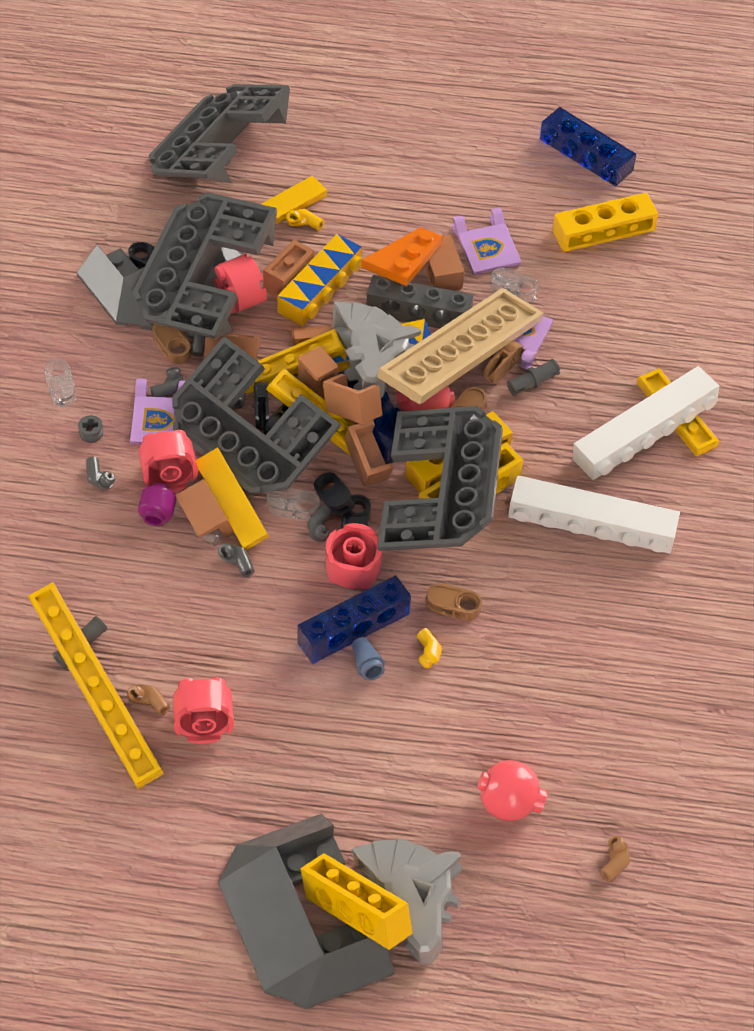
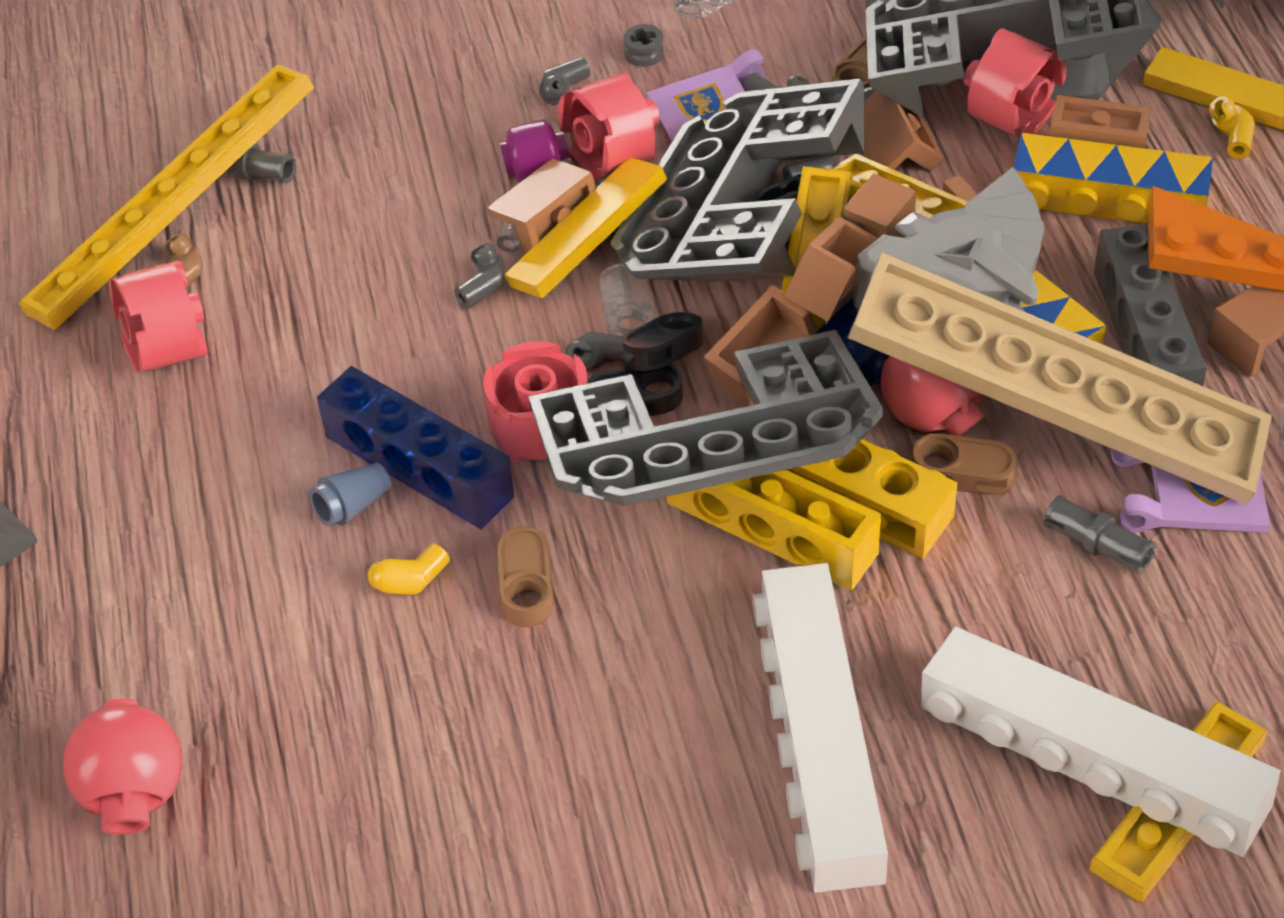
camera: 75 degrees right, 5 degrees down
(503, 361) = (1097, 472): medium nougat piece -> none

